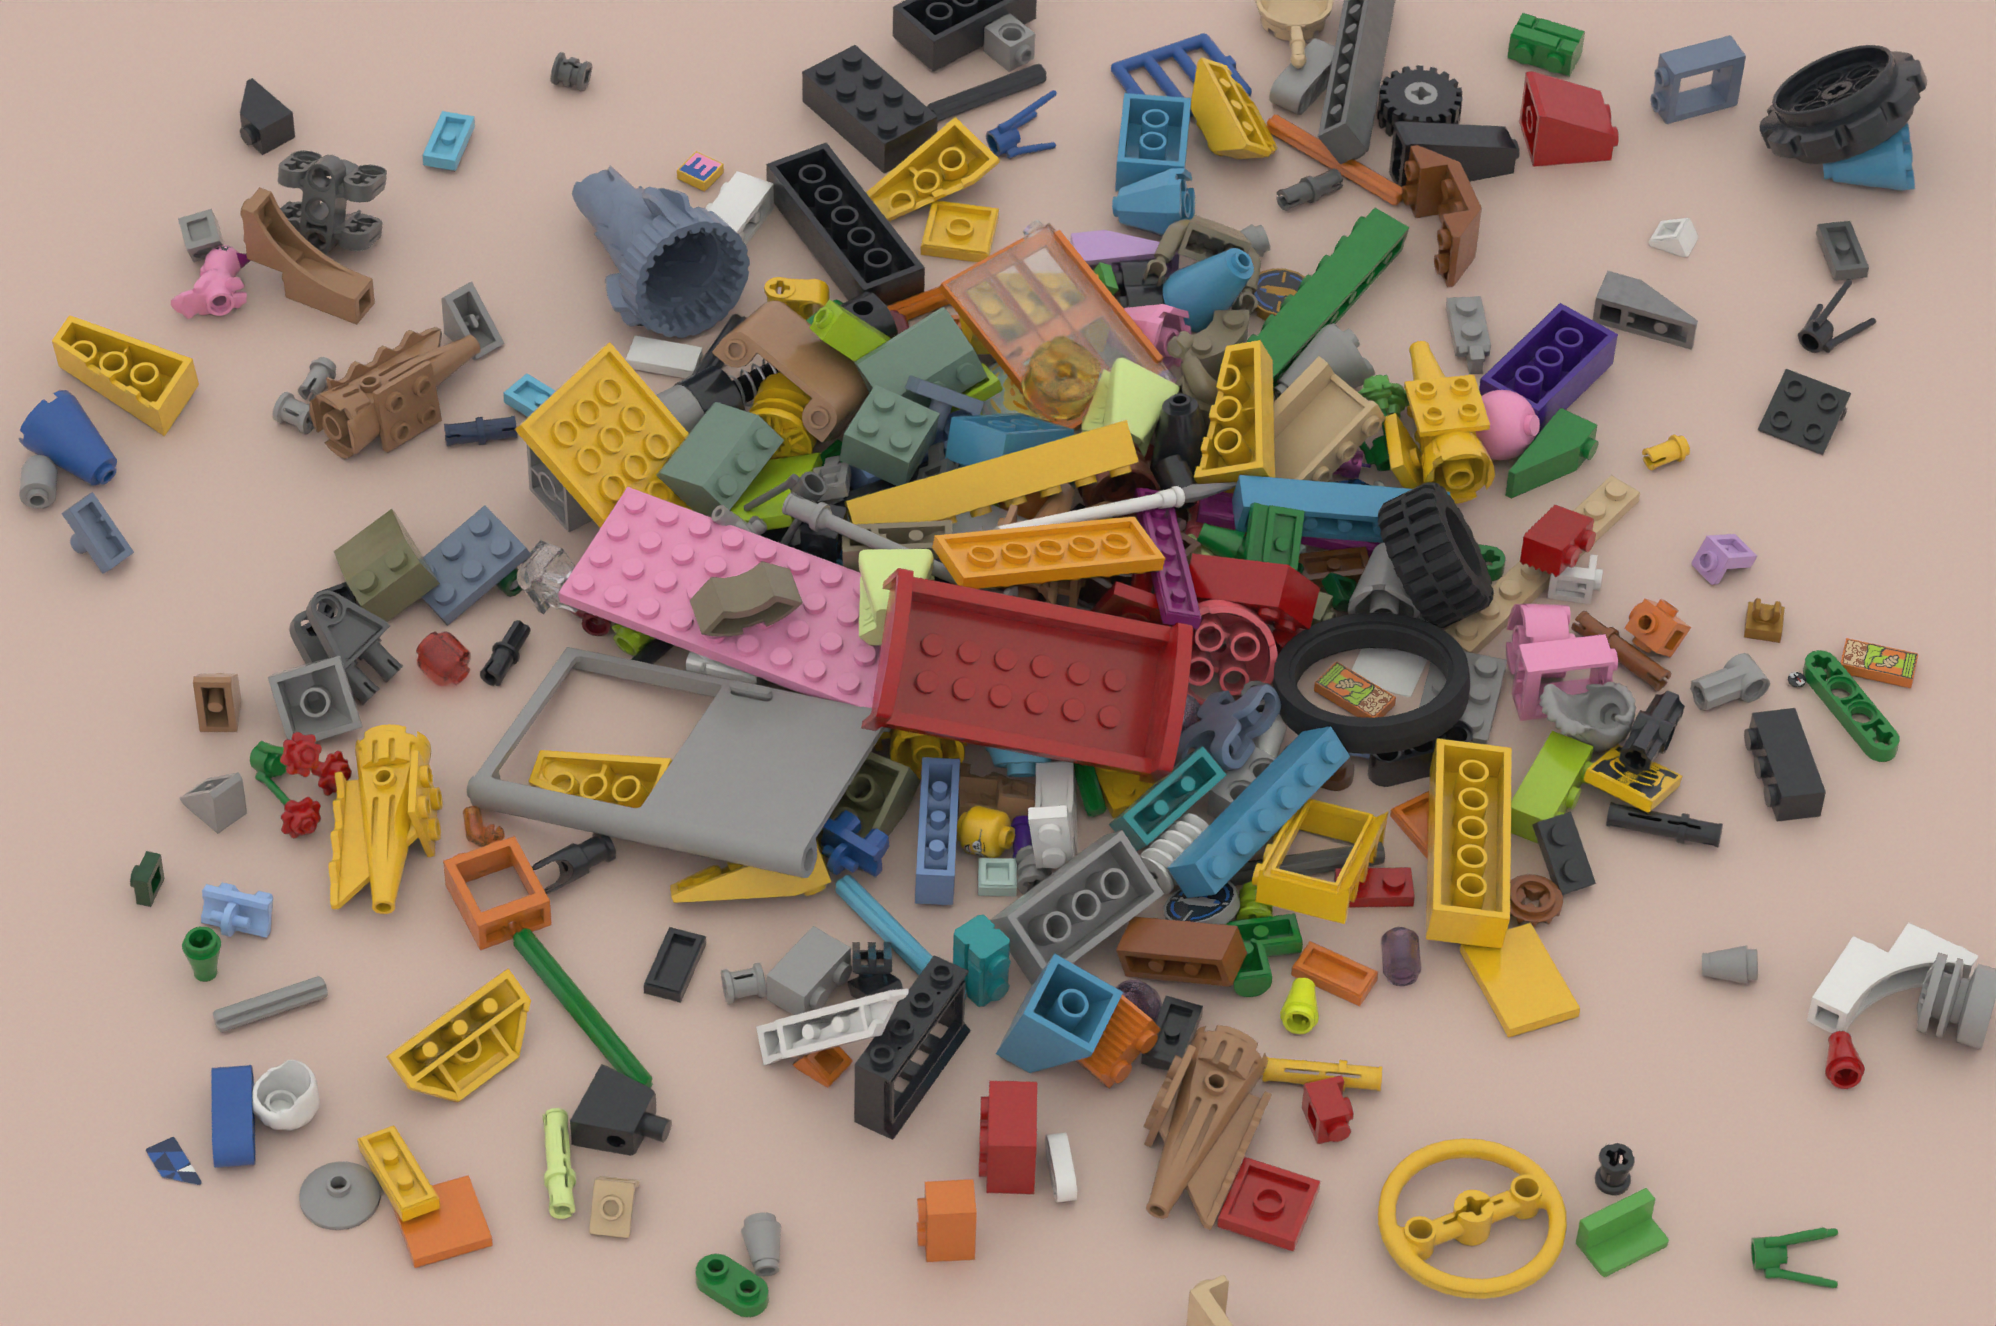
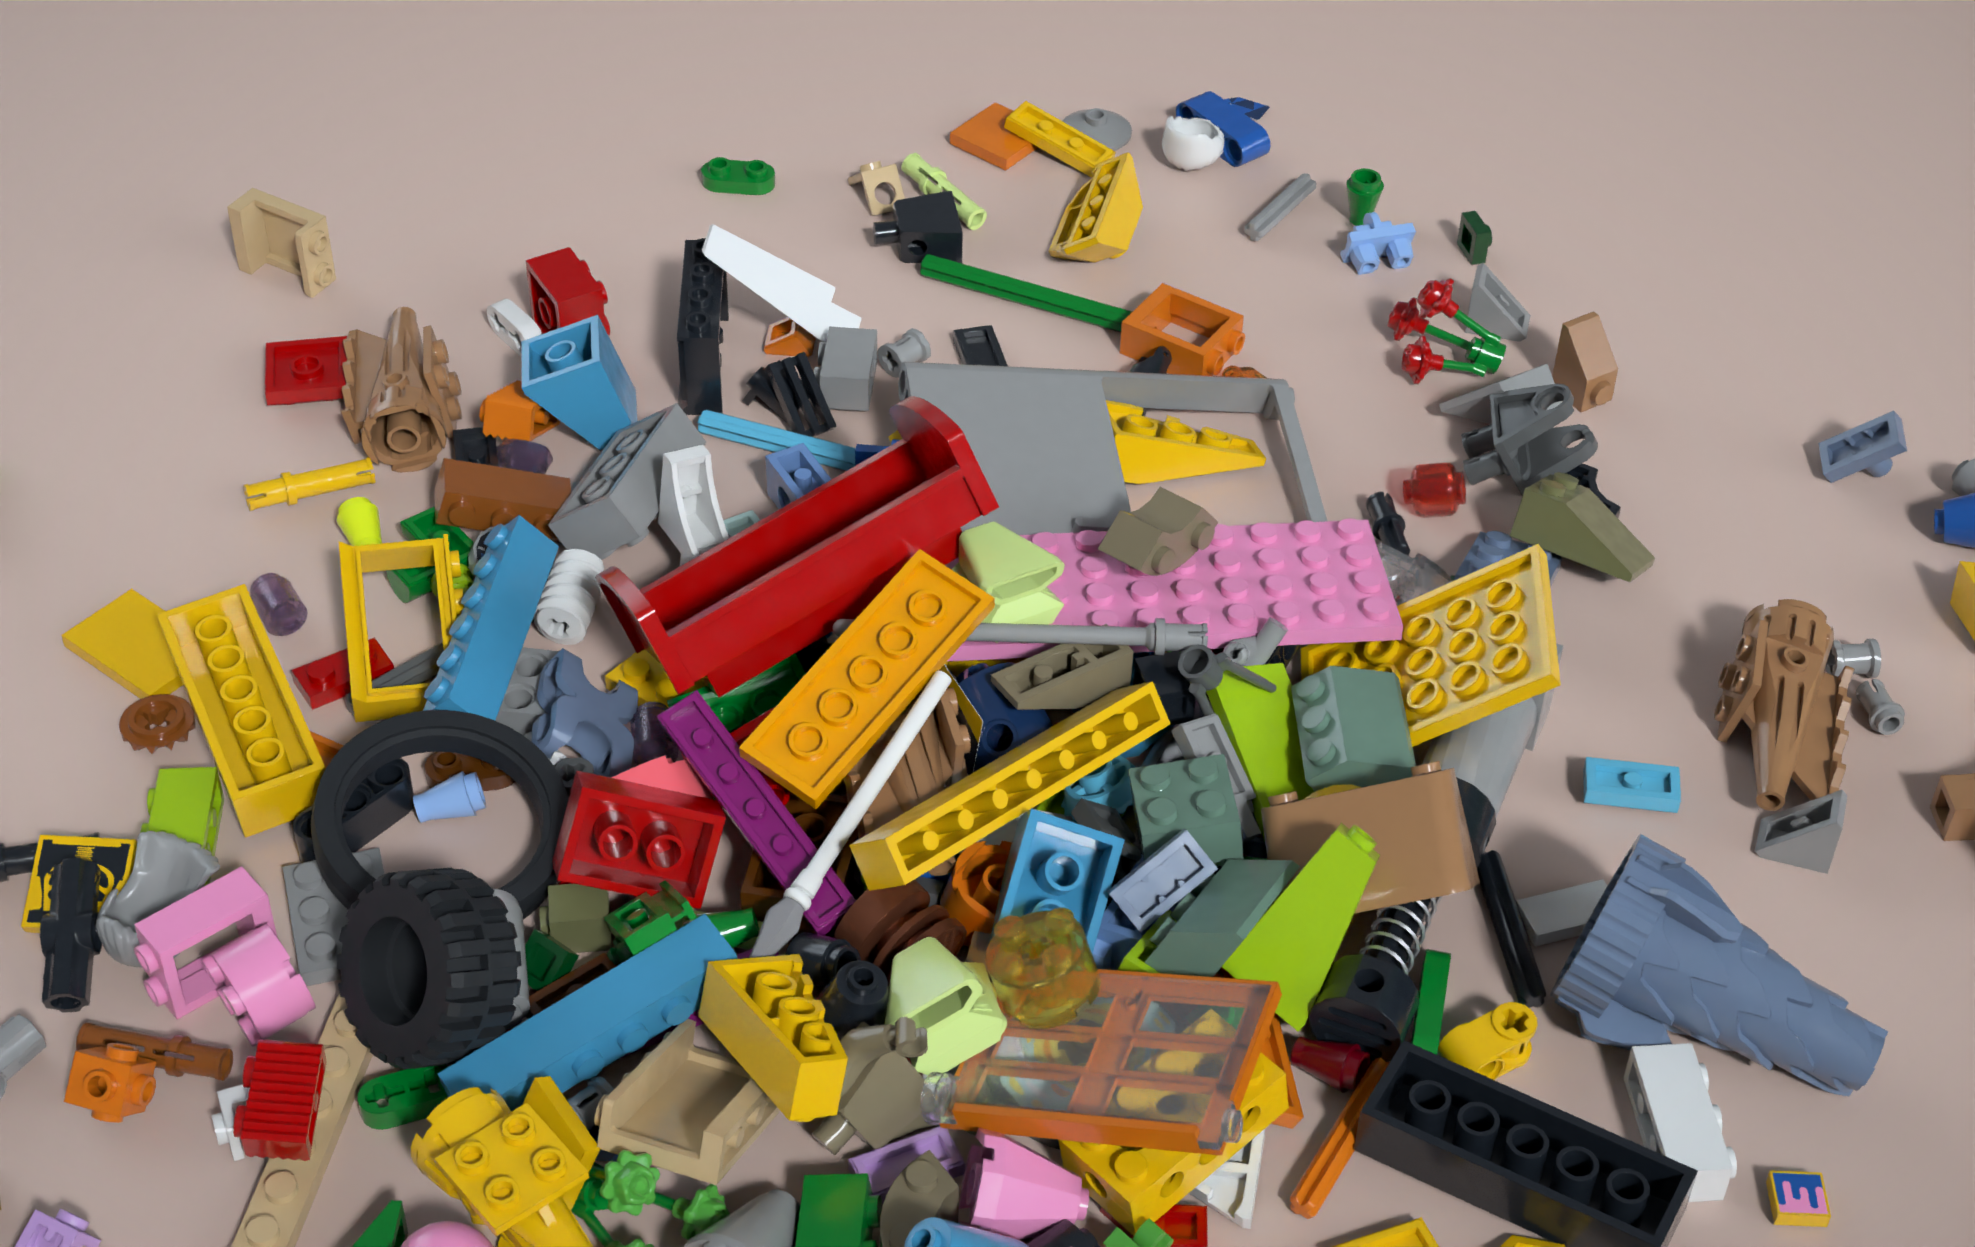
camera: 150 degrees right, 5 degrees down
(382, 815) = (1336, 341): yellow piece -> none
(480, 430) = (1675, 718): dark blue pin -> none
(762, 1241) = (734, 200): light grey cone -> none
(947, 1220) = (582, 225): orange brick -> none
(986, 957) = (701, 403): teal brick -> none
(1169, 798) = (595, 632): teal brick -> none
(1327, 1109) = (287, 448): red brick -> none
(1335, 973) = (323, 582): orange tile -> none
(1354, 692) = (490, 862): tile -> none
(1472, 1218) = (102, 420): yellow piece -> none
(1564, 853) = (132, 759): black plate -> none

